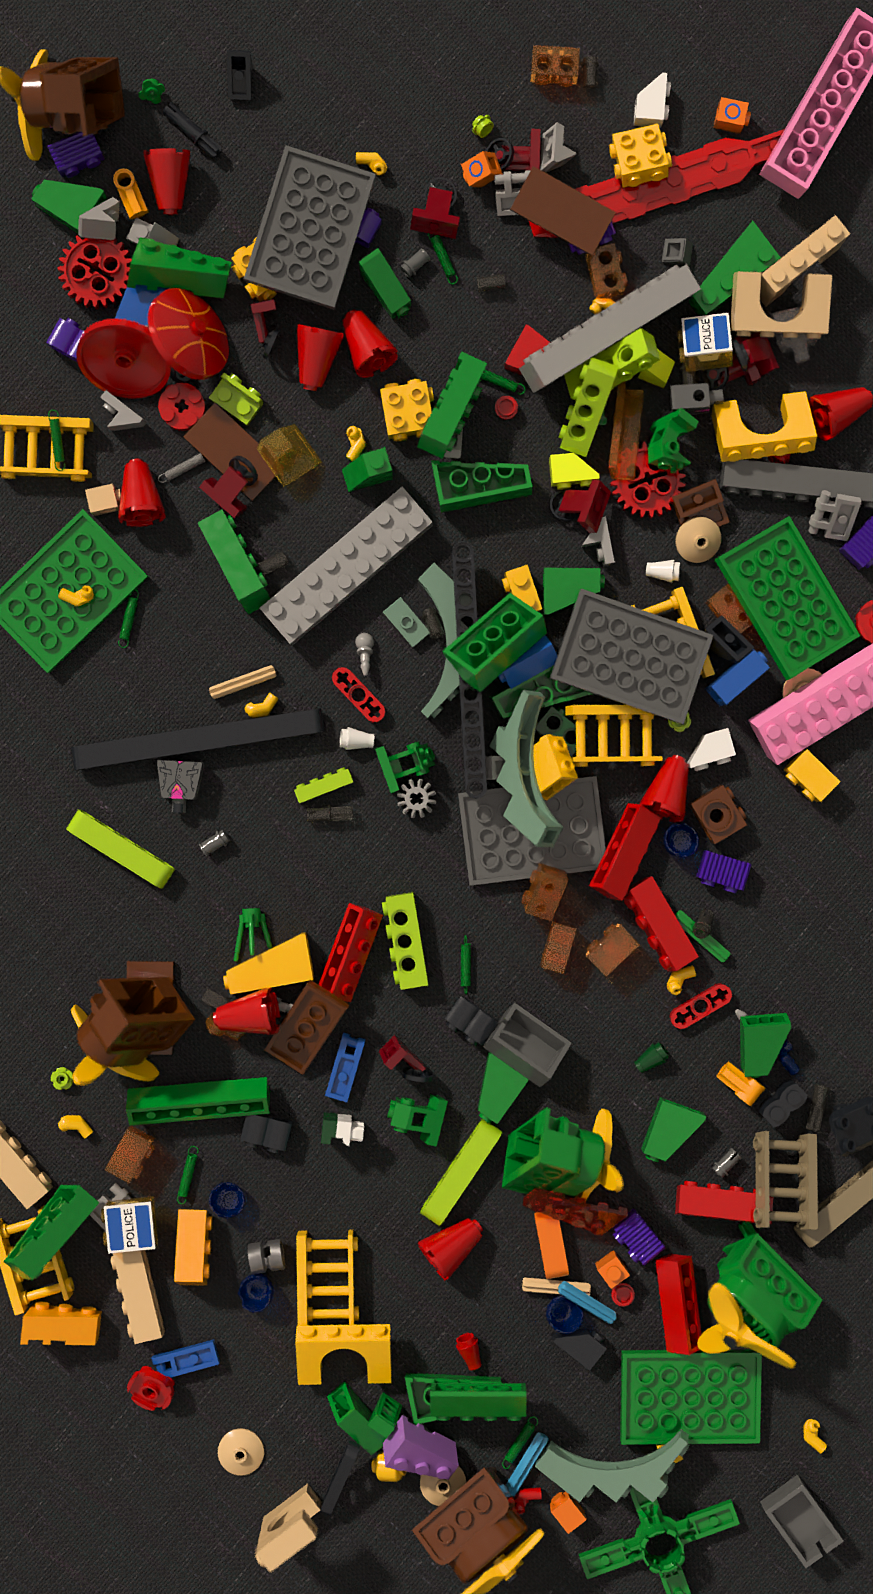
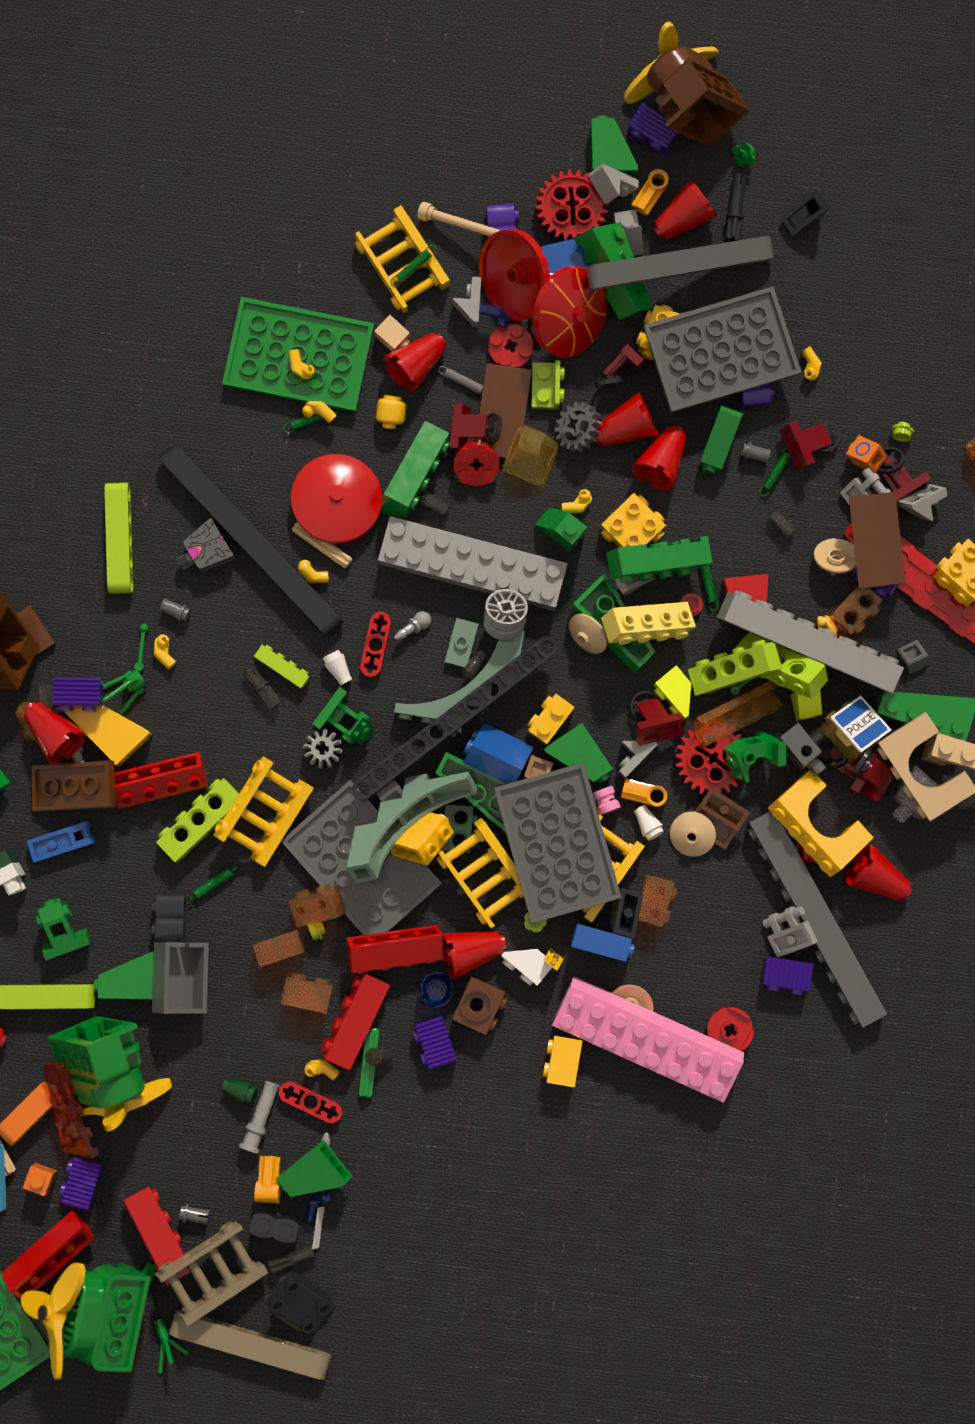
camera: 50 degrees right, 5 degrees down
(17, 396) = (428, 212): none -> tan piece
(124, 605) = (318, 407): none -> yellow arm
(144, 398) = (497, 312): none -> clear blue arm
(169, 546) = (391, 411): none -> yellow head
(210, 211) = (679, 263): none -> dark grey beam
(212, 643) = (336, 499): none -> red dish
(231, 971) = (77, 693): none -> dark purple brick
(240, 903) = (139, 665): none -> green hinge
(242, 878) = (161, 649): none -> yellow arm
(274, 511) = (476, 476): none -> red plate
(291, 396) = (578, 426): none -> dark grey gear
(395, 1051) = (104, 873): dark red piece -> none
(410, 568) = (505, 614): none -> light grey wheel
(453, 870) = (274, 830): none -> yellow fence
(472, 510) = (588, 633): none -> tan dish
(495, 641) = (492, 722): green slope -> none
(500, 453) = (648, 622): none -> light yellow brick
(549, 256) = (835, 555): none -> tan dish
(556, 630) = (537, 767): none -> medium nougat plate
(564, 906) = (316, 930): none -> lime plate
(621, 592) = (606, 800): none -> bright pink wheel
(623, 1294) = (24, 1203): red plate -> none
(635, 558) = (641, 792): none -> light orange piece
(670, 1129) = (190, 1146): green slope -> none
(690, 1064) = (256, 1127): none -> light grey pin
(723, 726) = (553, 959): none -> yellow sticker
(787, 598) = (695, 939): green plate -> none
(806, 1068) = (318, 1226): none -> white sticker
(810, 1253) = (164, 1346): none -> green plant

